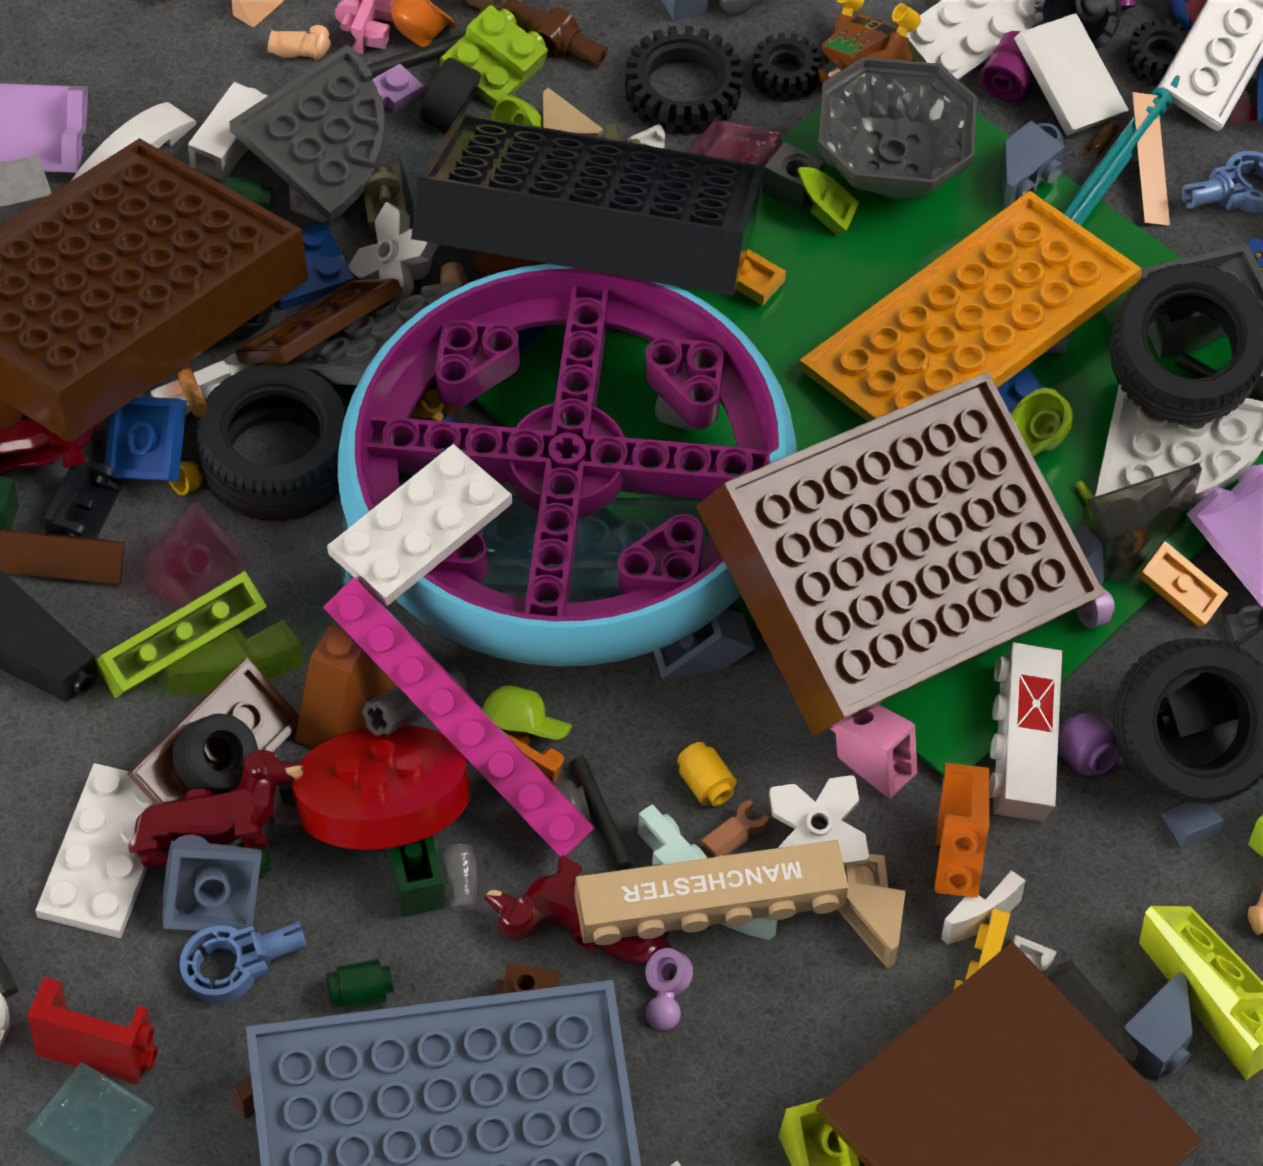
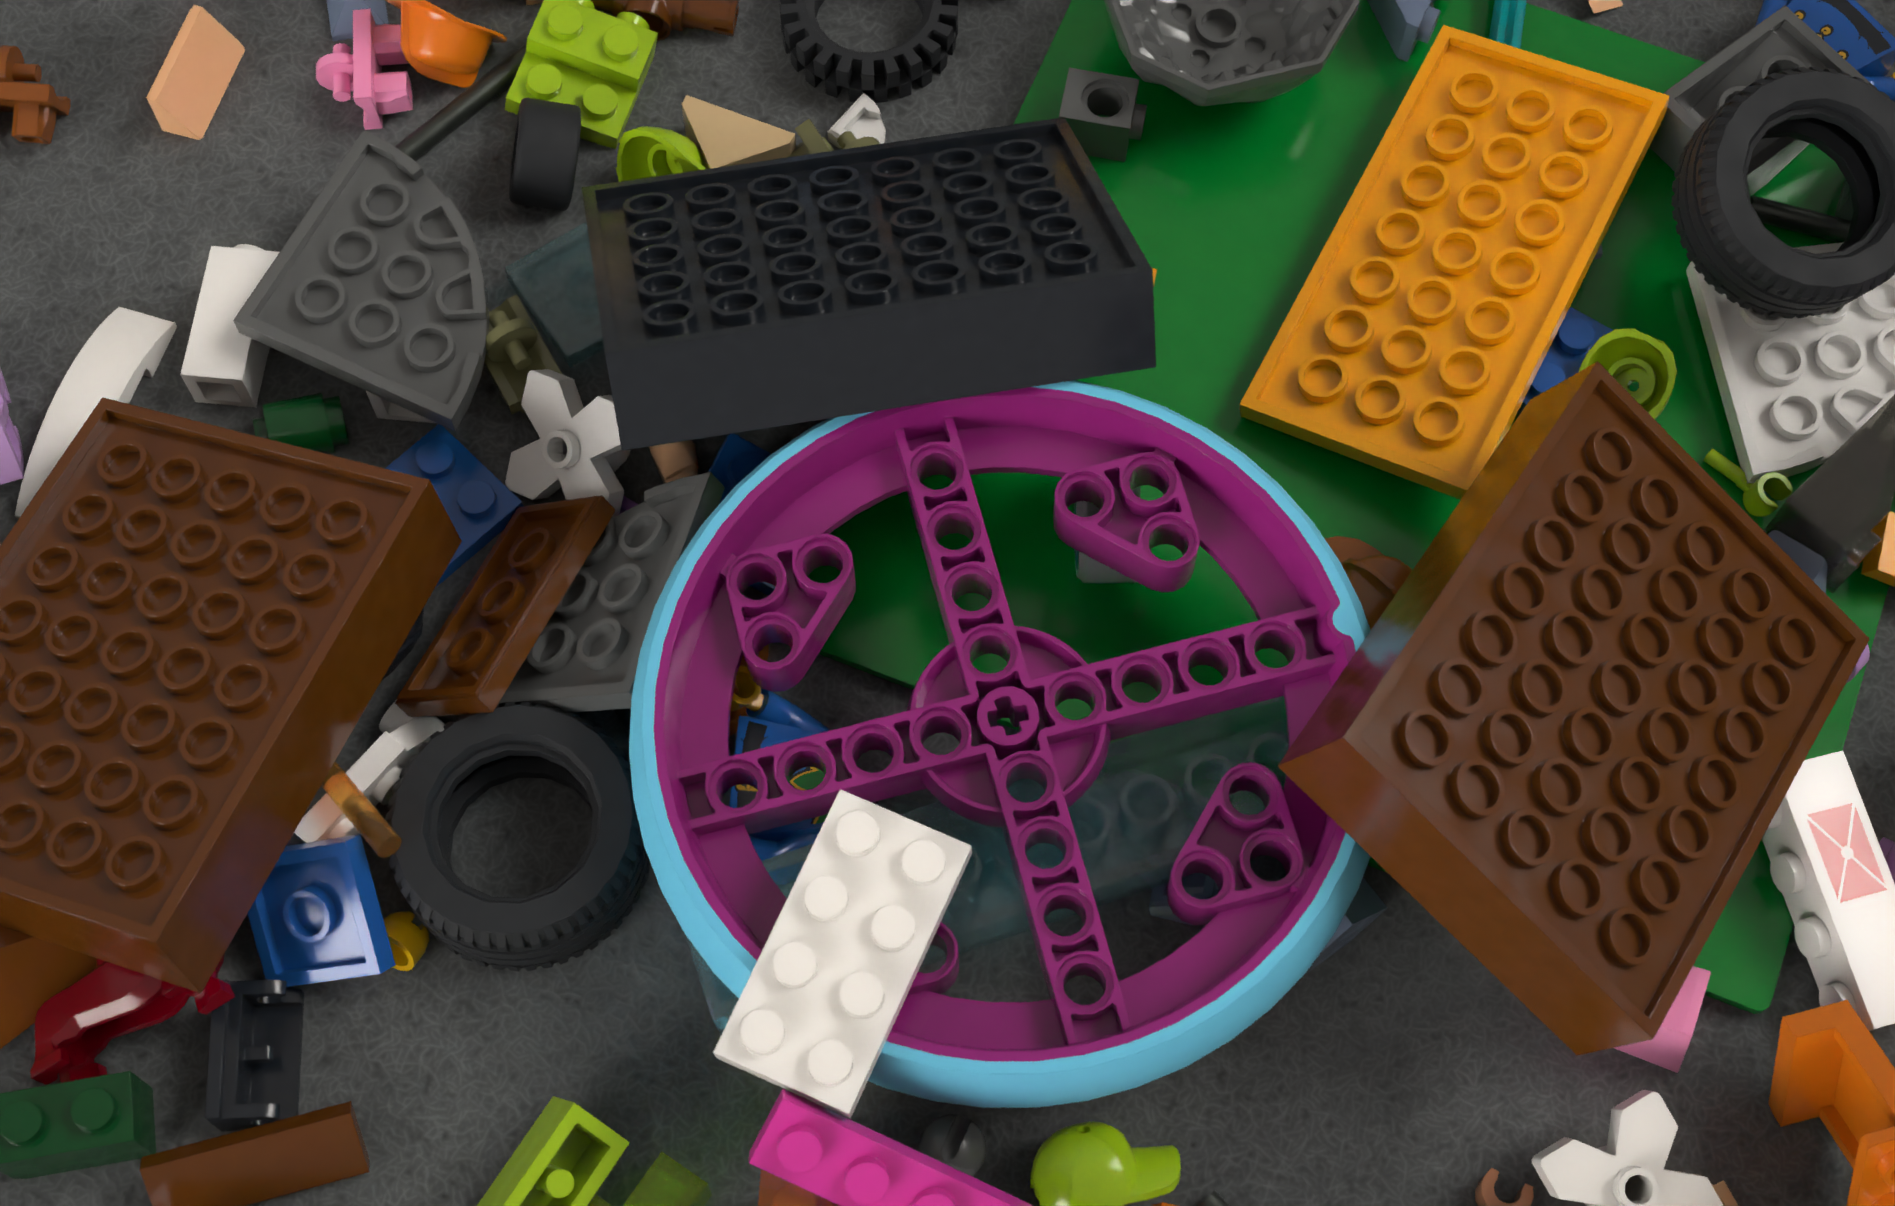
camera: 20 degrees left, 10 degrees up
(191, 559) = (475, 1093): clear pink slope -> none
(299, 43) = (280, 146): light nougat arm -> none
(398, 87) = (458, 165): lavender plate -> none
(706, 774) = (1410, 1152): yellow brick -> none
(738, 143) = (991, 93): clear pink plate -> none
(830, 200) = (1172, 136): lime plate -> none

